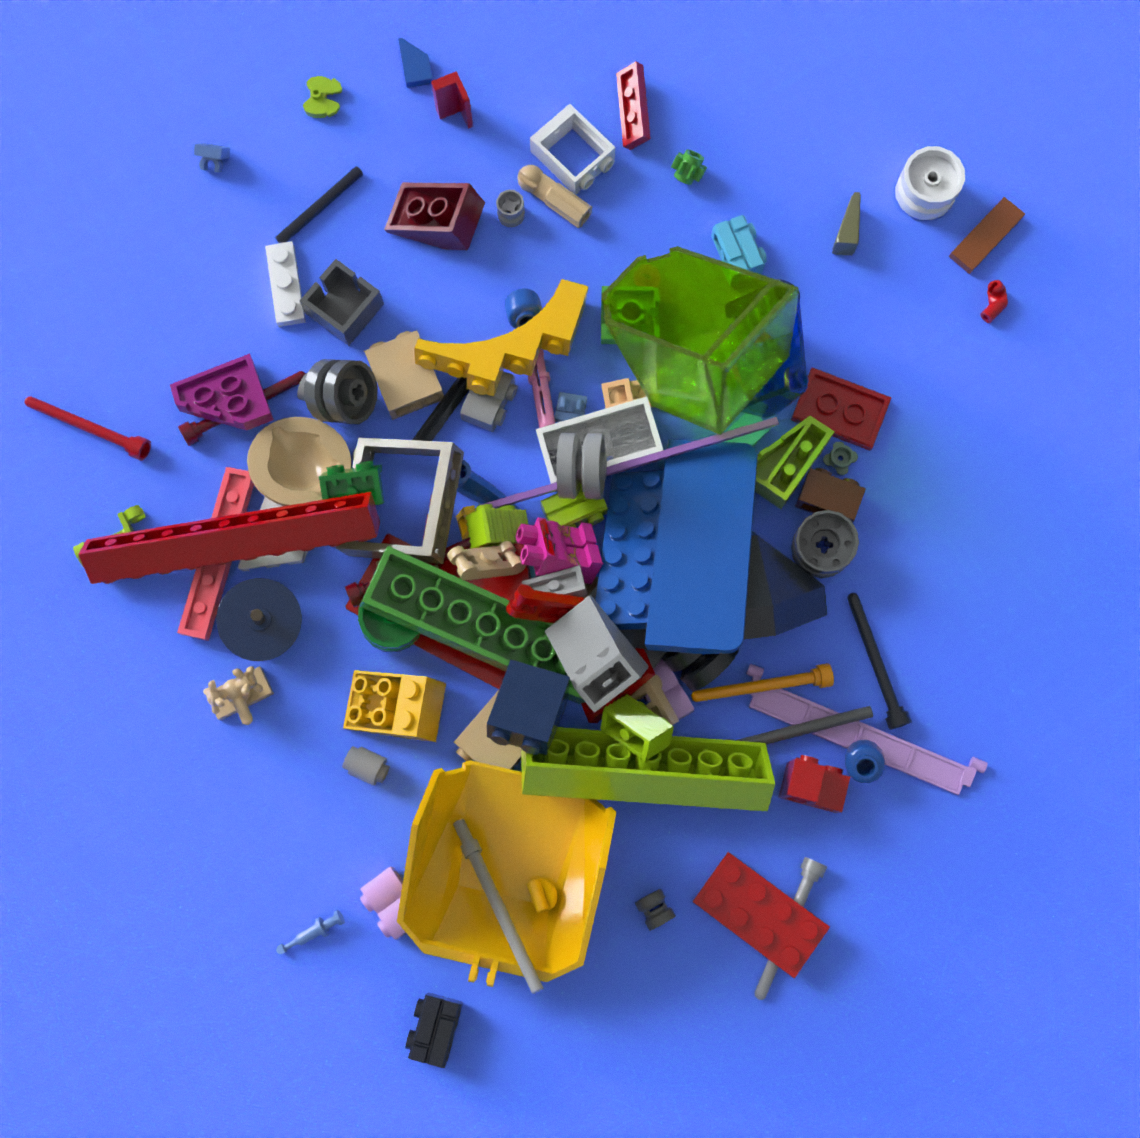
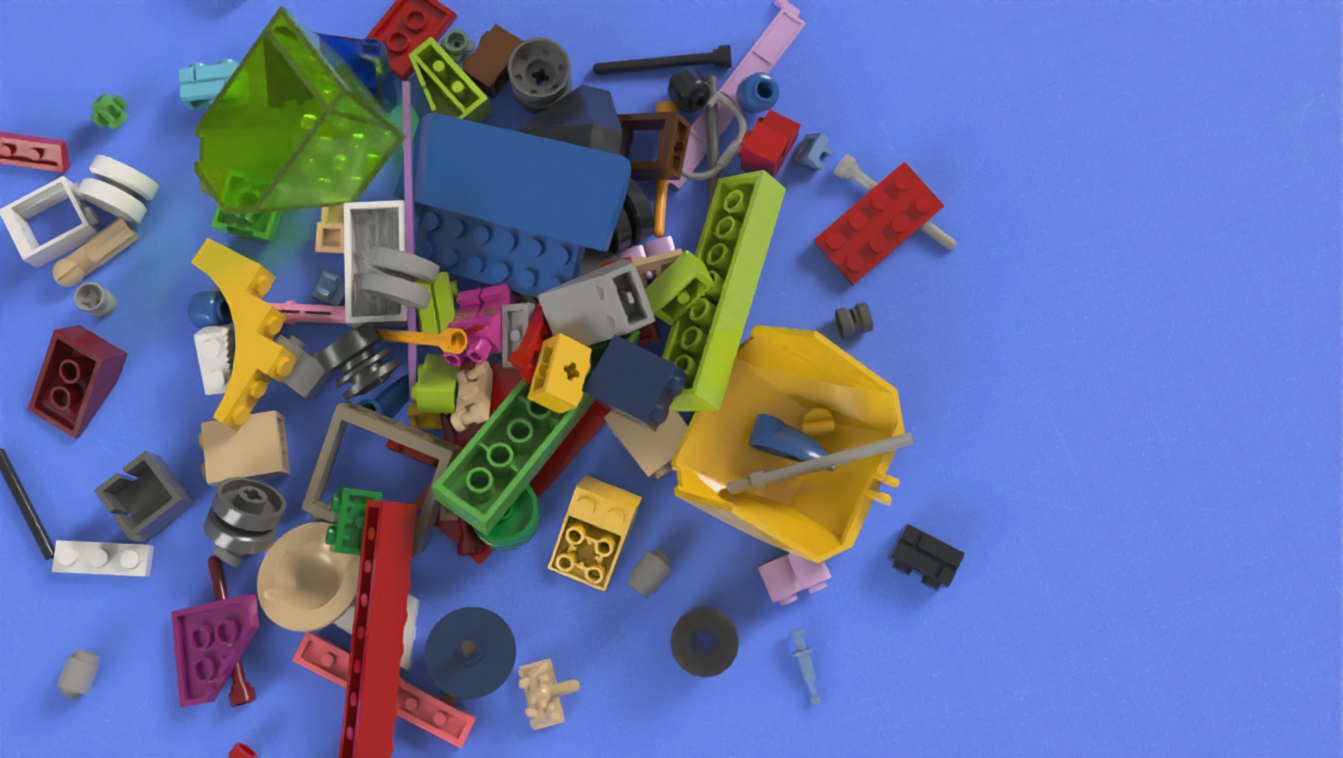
camera: 75 degrees left, 0 degrees up
(183, 293) = (78, 673): none -> light grey brick
(294, 828) = (696, 658): none -> clear smoke wheel
(443, 410) = (295, 416): black axle -> none
(479, 324) = (216, 356): none -> white brick
(502, 450) = (358, 361): none -> pearl dark grey wheel
(516, 866) = (784, 441): none -> blue piece
(519, 635) = (560, 374): none -> yellow brick
(531, 526) = (449, 340): none -> light orange piece
(614, 197) = (117, 189): none -> white wheel
(767, 688) = (671, 149): none -> reddish brown window
(792, 746) = (734, 147): none -> light grey piece
(821, 829) = (811, 150): none -> medium blue tile
(850, 692) = (688, 90): none -> black head

